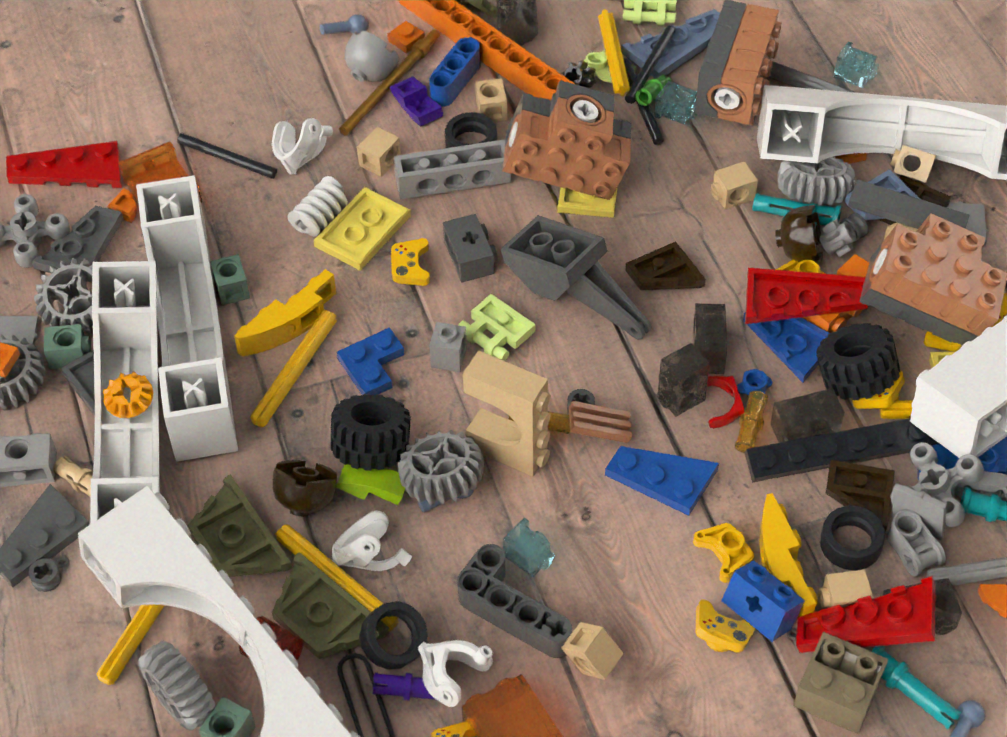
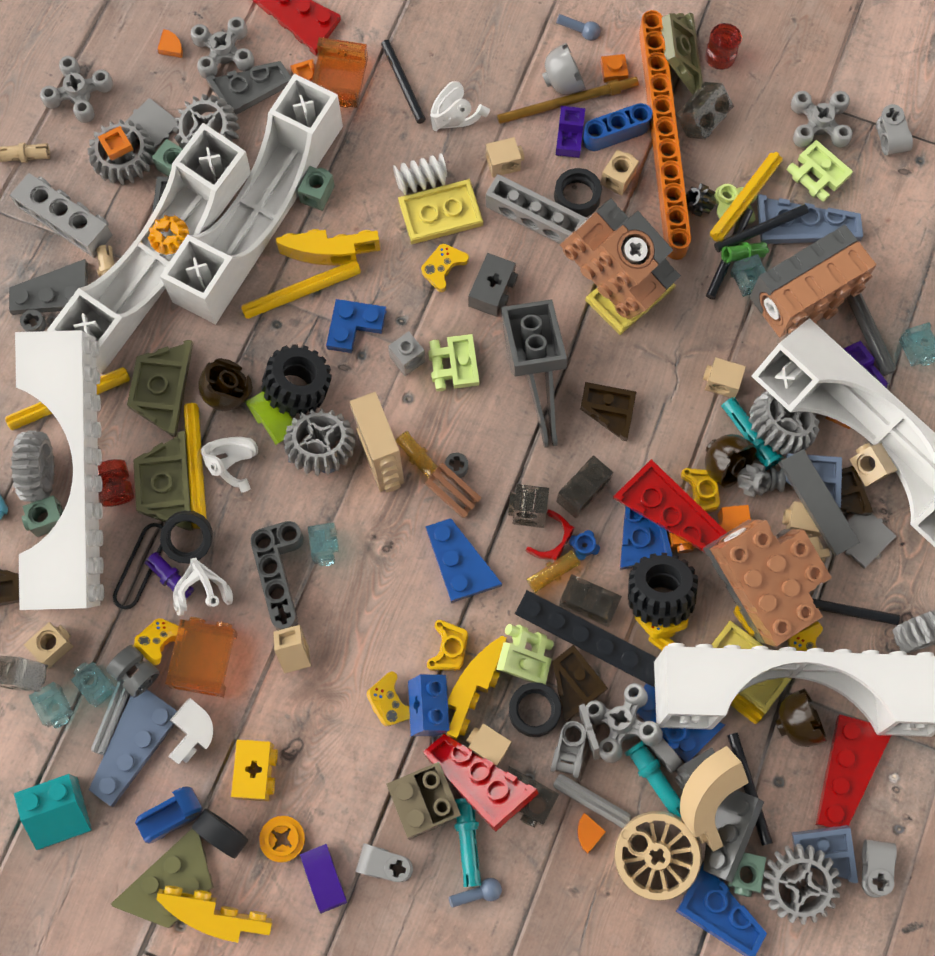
camera: 40 degrees right, 20 degrees up
(799, 496) = (522, 662): none -> yellowish green plate

